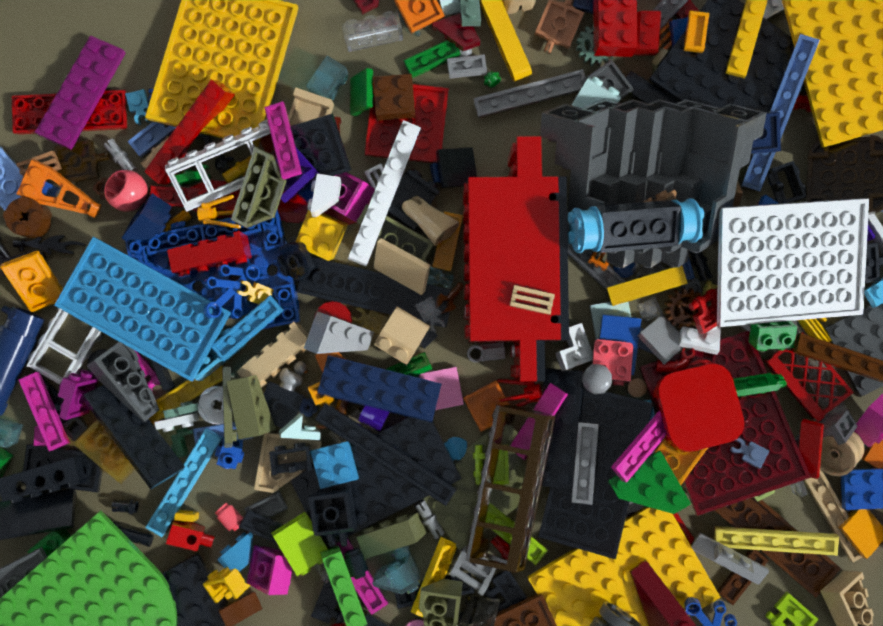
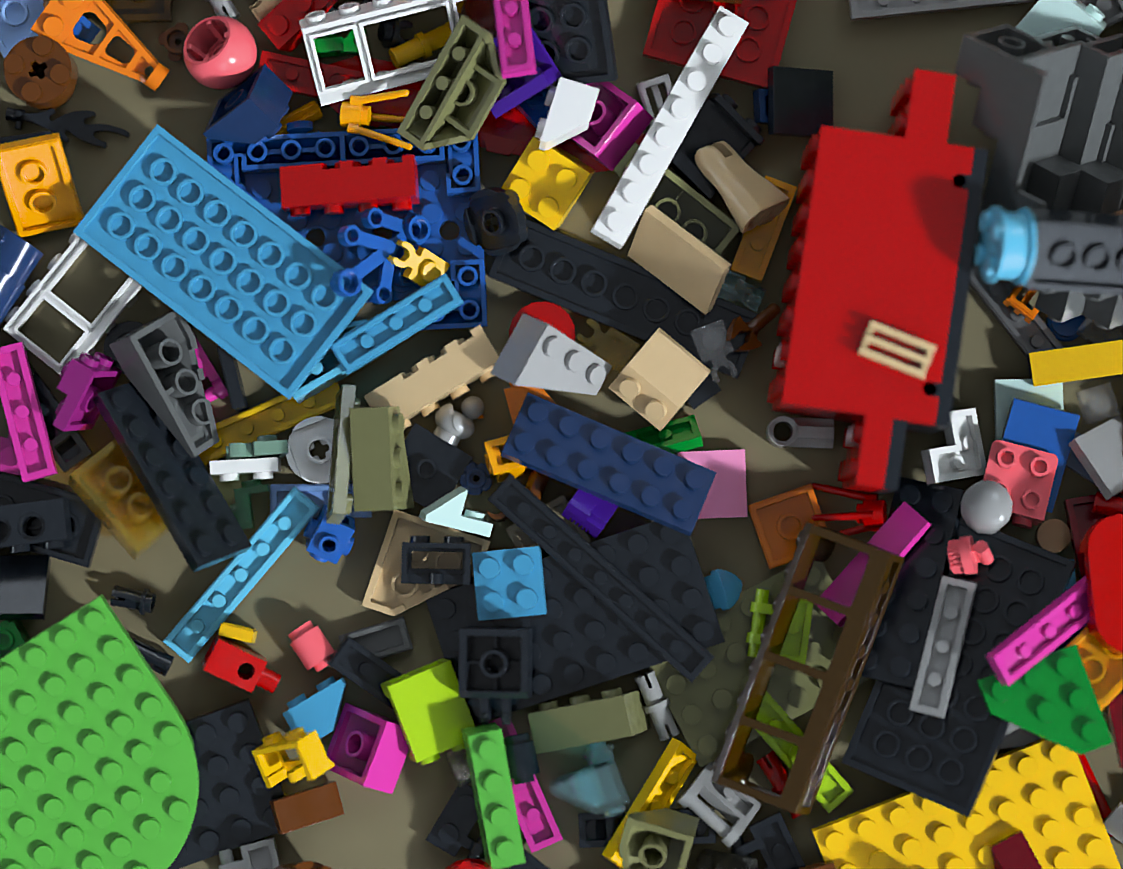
camera: 10 degrees right, 0 degrees up
(590, 408) = (965, 555): none -> coral piece

